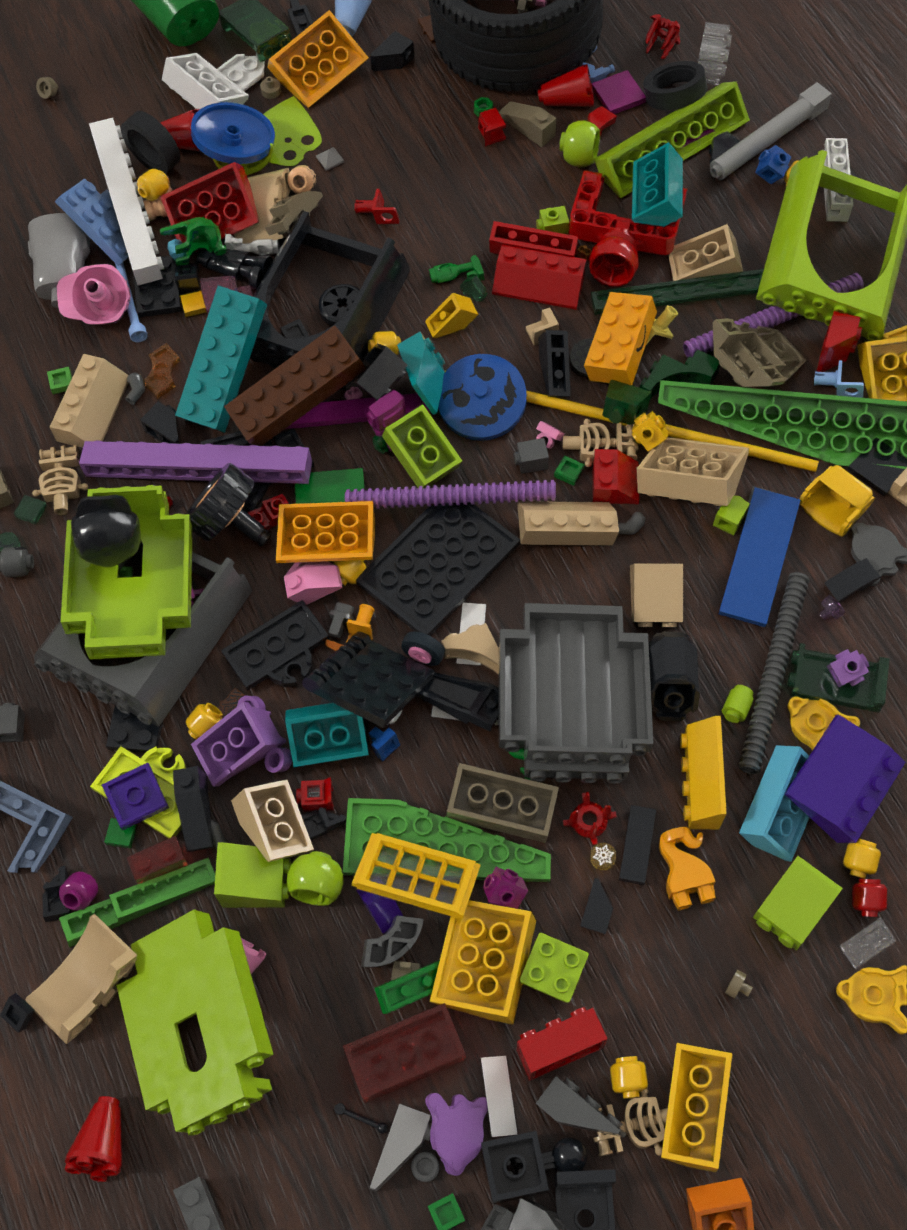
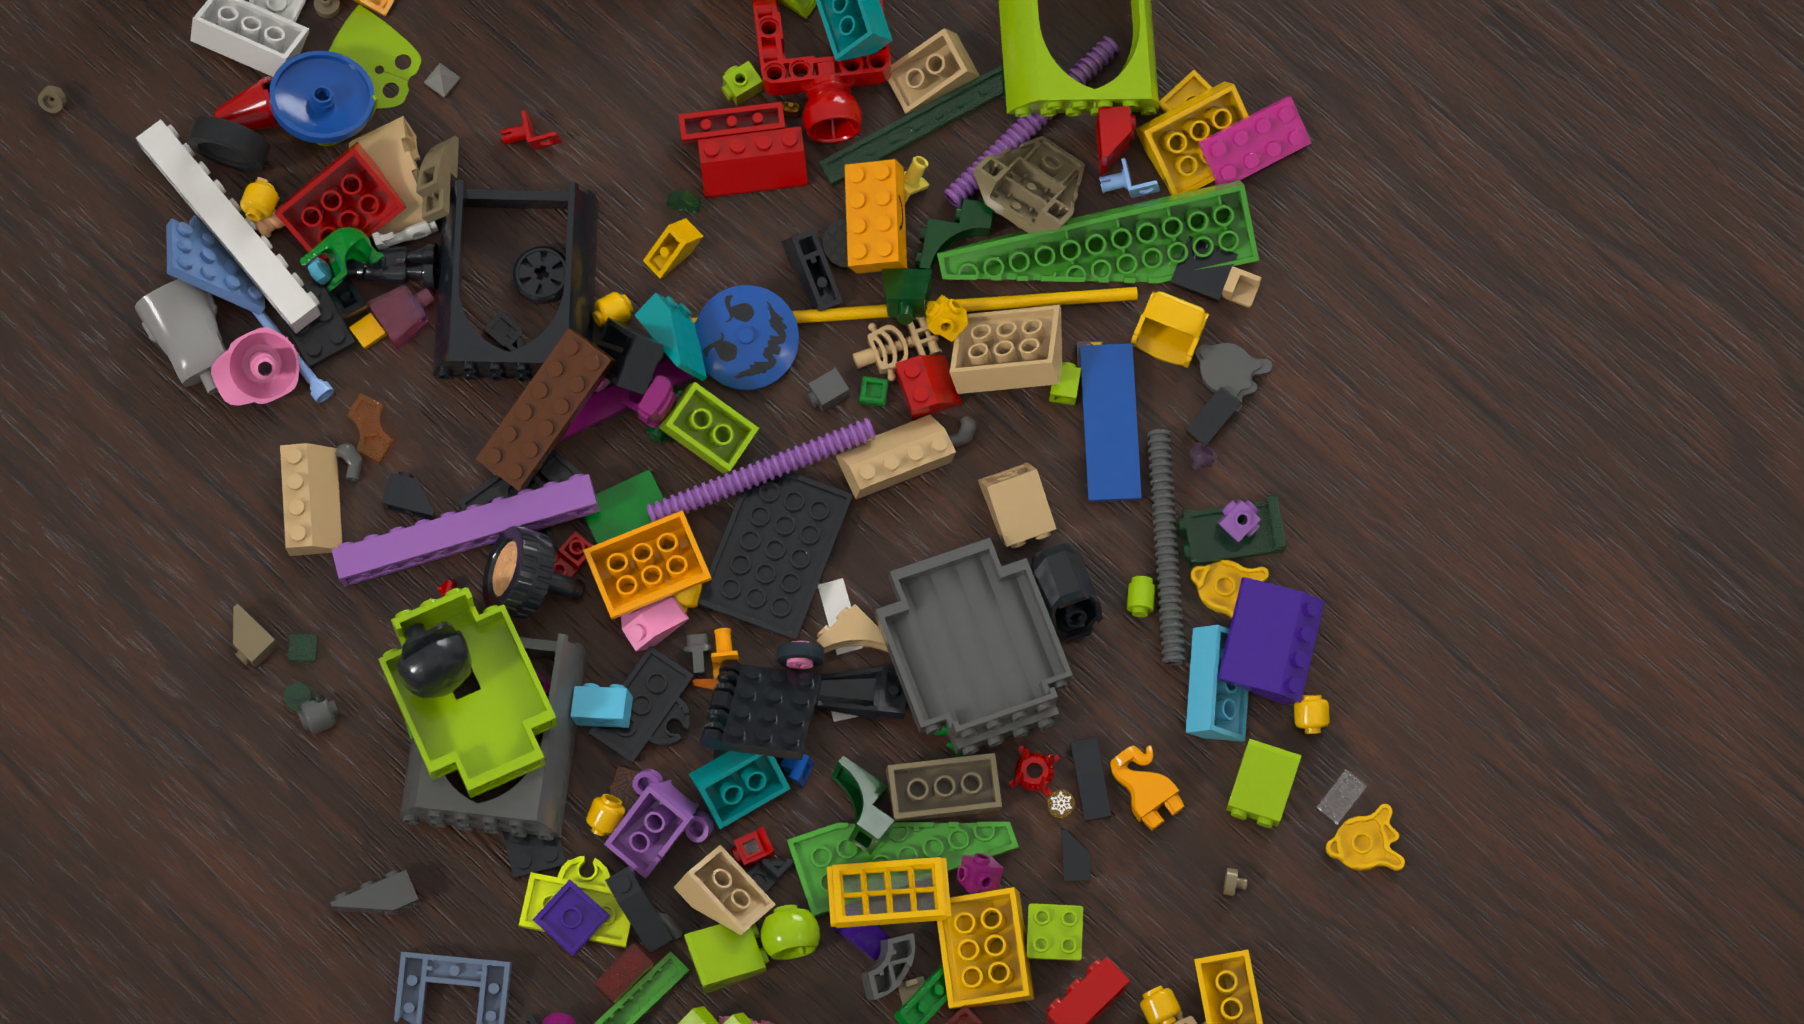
camera: 25 degrees left, 10 degrees up
(59, 379) = (262, 482): bright green plate -> none
(59, 480) = (326, 616): tan torso -> none
(117, 837) = (567, 963): green tile -> none
(221, 358) = (446, 402): teal brick -> none
(239, 631) = (601, 705): none -> medium azure brick
(295, 180) = (425, 126): light nougat head -> none
(433, 783) = (865, 794): none -> dark green arch
(450, 271) = (645, 186): green piece -> none
(547, 322) = (781, 225): tan panel -> none
(549, 432) = (837, 354): bright pink tile -> none
(704, 774) = (1131, 684): yellow slope -> none
(869, 897) = (1330, 749): red head -> none

